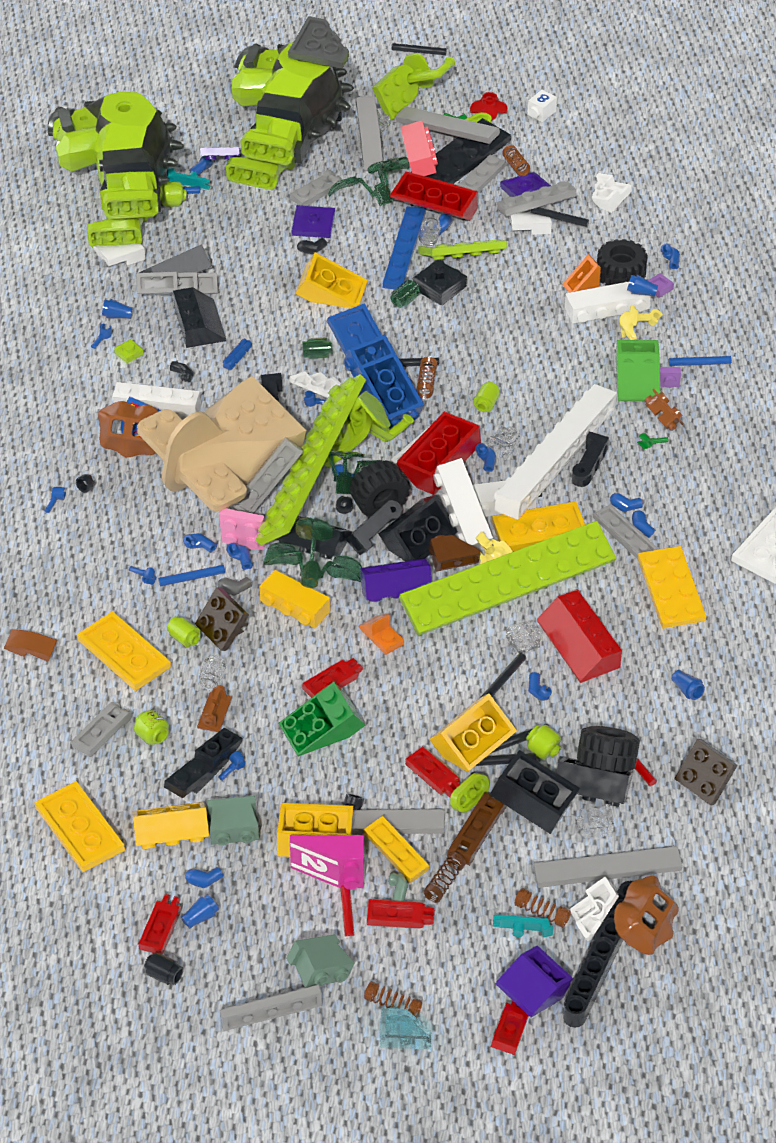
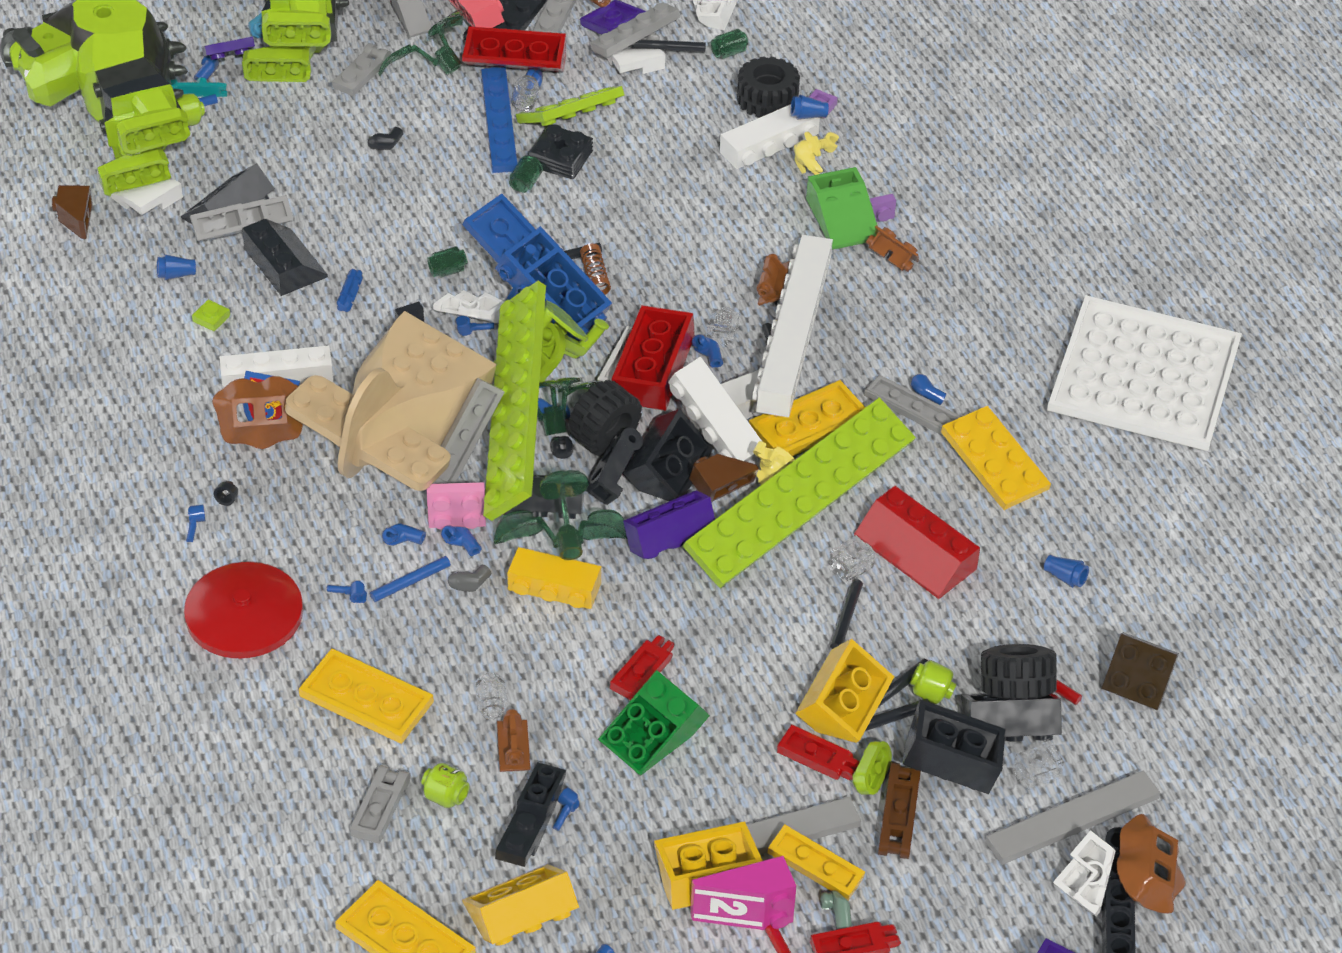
camera: 20 degrees left, 0 degrees up
(29, 642) = (235, 715): dark orange slope -> none
(62, 250) = (74, 208): none -> reddish brown slope
(63, 569) = (243, 610): none -> red dish
(104, 334) = (170, 301): blue hand -> none
(183, 631) = (433, 652): lime brick -> none
(185, 370) = (292, 323): black arm -> none
(222, 619) = (477, 625): dark brown plate -> none
(233, 820) = (600, 878): sand green hips -> none
(313, 221) = (374, 109): dark purple plate -> none
(330, 283) = (429, 180): yellow slope -> none
(354, 800) = (736, 814): black hinge -> none
(381, 633) = (675, 595): orange slope -> none
(451, 863) = (886, 899): reddish brown piece -> none
(486, 397) = (678, 278): lime brick -> none
(520, 924) = (1005, 915): teal piece -> none
(536, 689) = (897, 622): blue arm -> none
(556, 412) = (772, 279): none -> dark orange hinge
(562, 915) = (1050, 889): dark orange piece -> none
(584, 276) = (730, 111): orange slope -> none
(596, 449) = (834, 308): black leg -> none
(607, 224) = (729, 43): none -> clear green brick
(625, 504) = (894, 370): blue arm -> none
(647, 442) = (887, 291): green hand -> none
(671, 254) = (818, 65): blue arm -> none
(712, 360) = (905, 182): blue bar -> none

